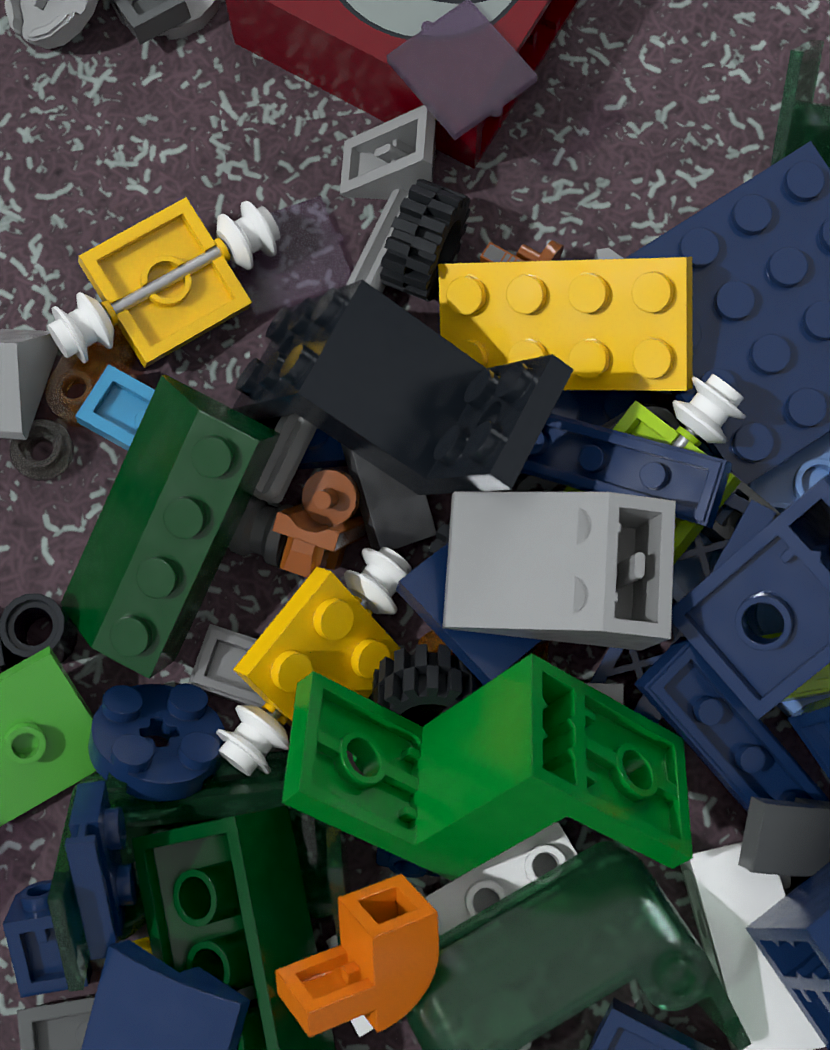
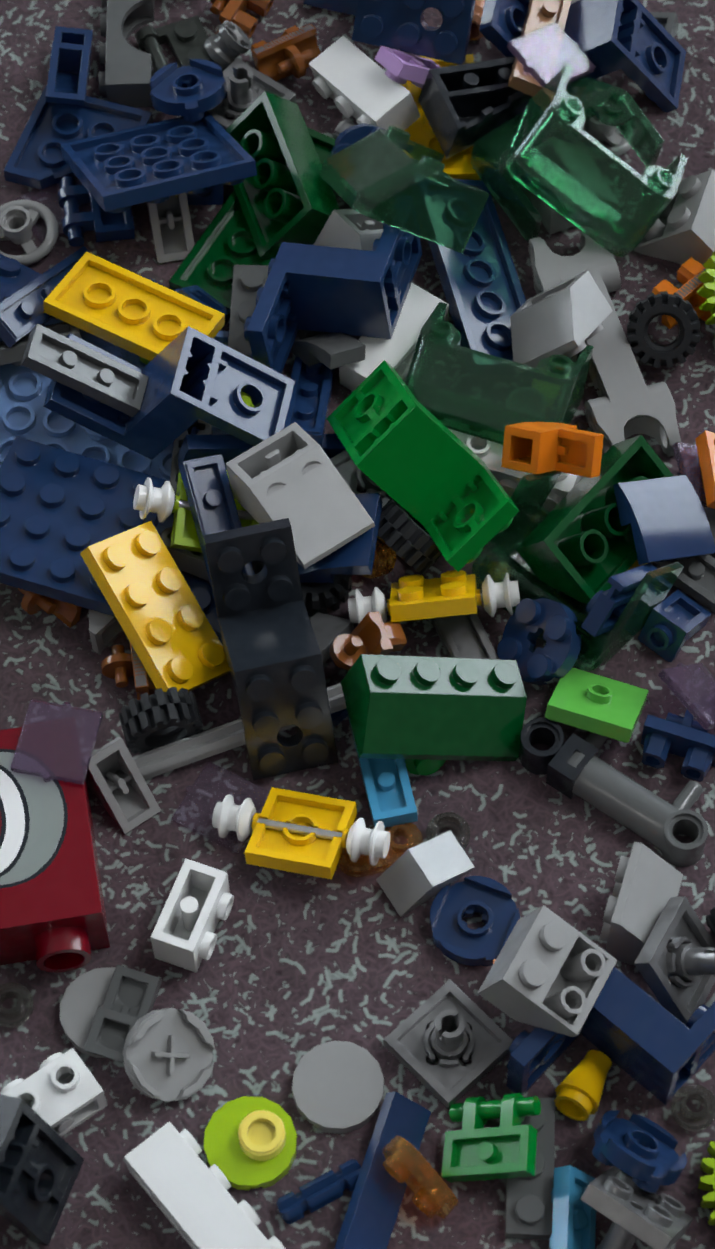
camera: 130 degrees left, 15 degrees down
(174, 106) = (191, 915): none -> white brick

